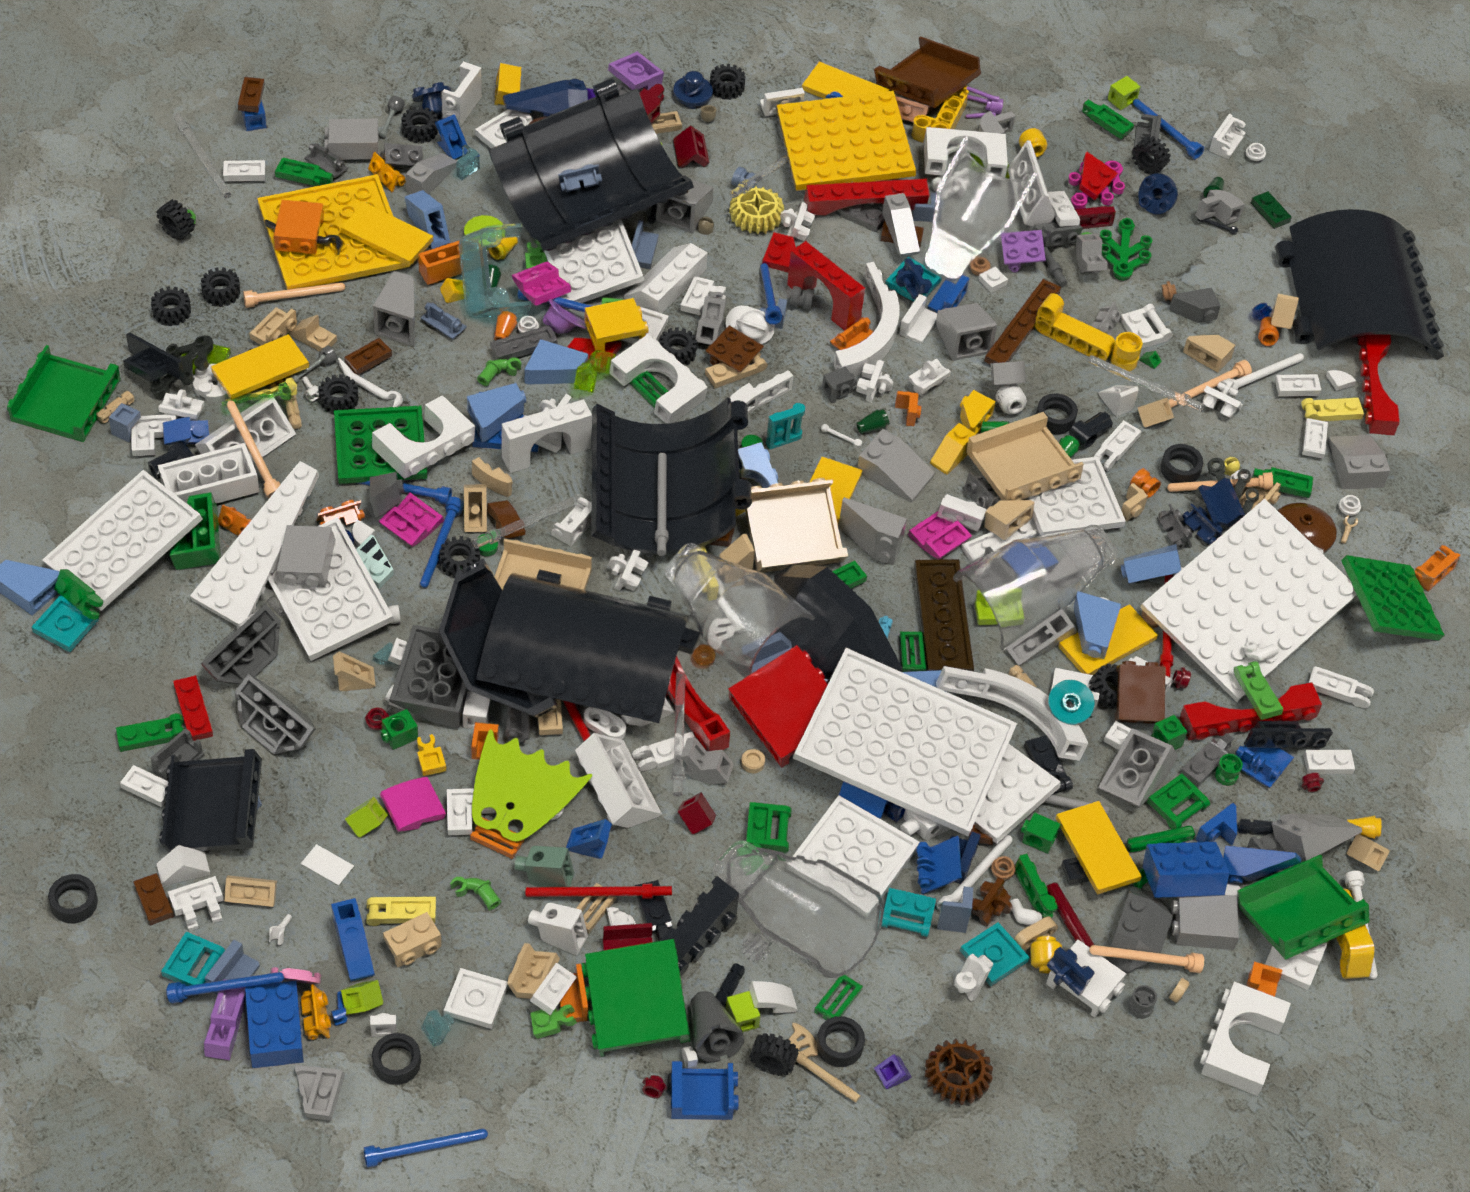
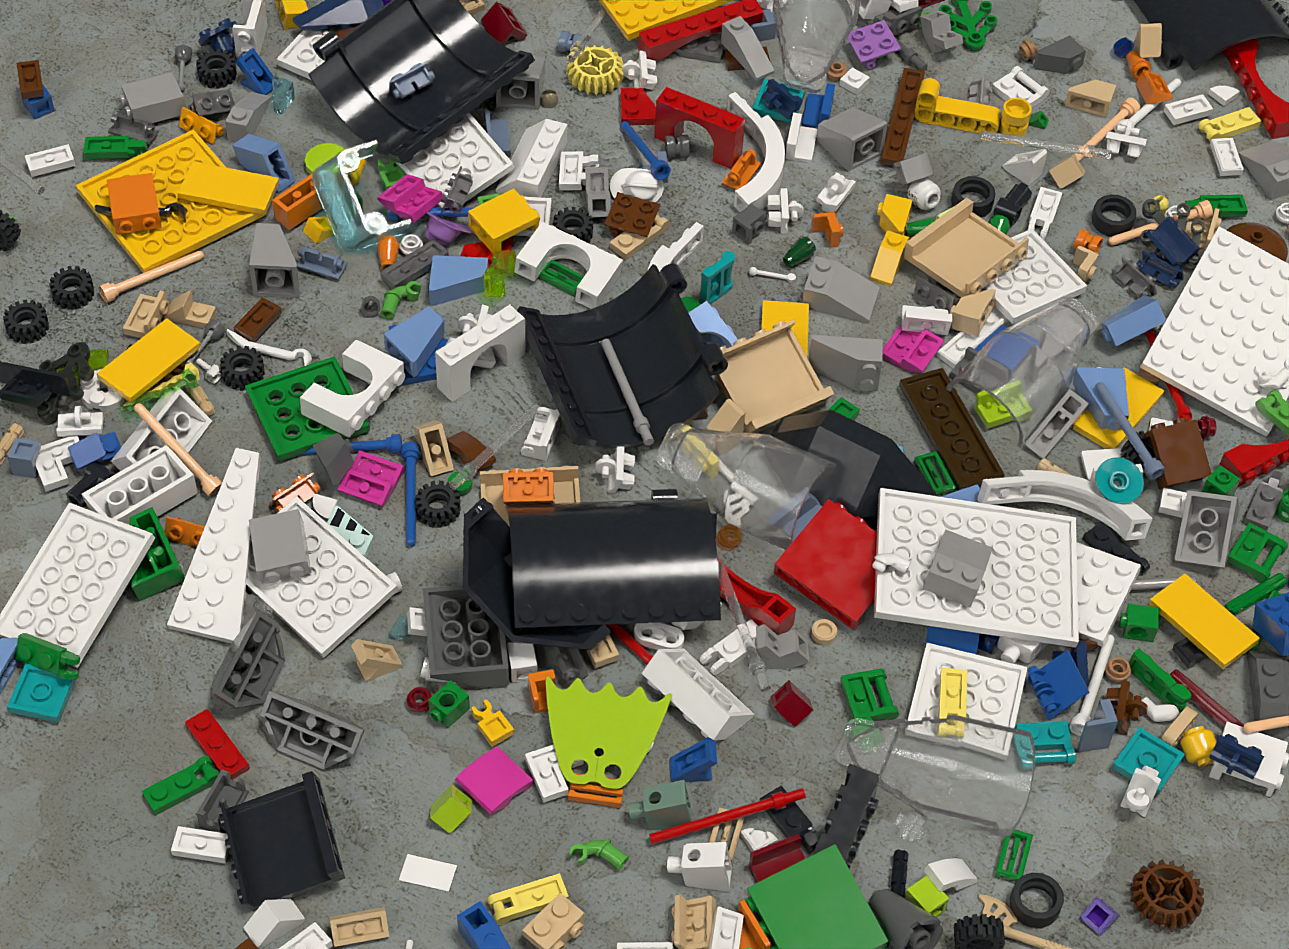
camera: 15 degrees left, 0 degrees up
(475, 371) = (375, 306): none -> dark grey hinge
(494, 479) = (445, 412): tan slope -> none
(537, 563) = (528, 487): none -> orange bracket
(577, 292) = (452, 197): none -> flat silver hinge
(826, 712) = (892, 560): none -> white arm
(840, 844) = (952, 692): none -> light yellow plate
(884, 735) = (958, 568): none -> light grey slope
(1109, 699) = (1153, 468): none -> sand blue piece
(1273, 356) = (1153, 88): none -> orange slope

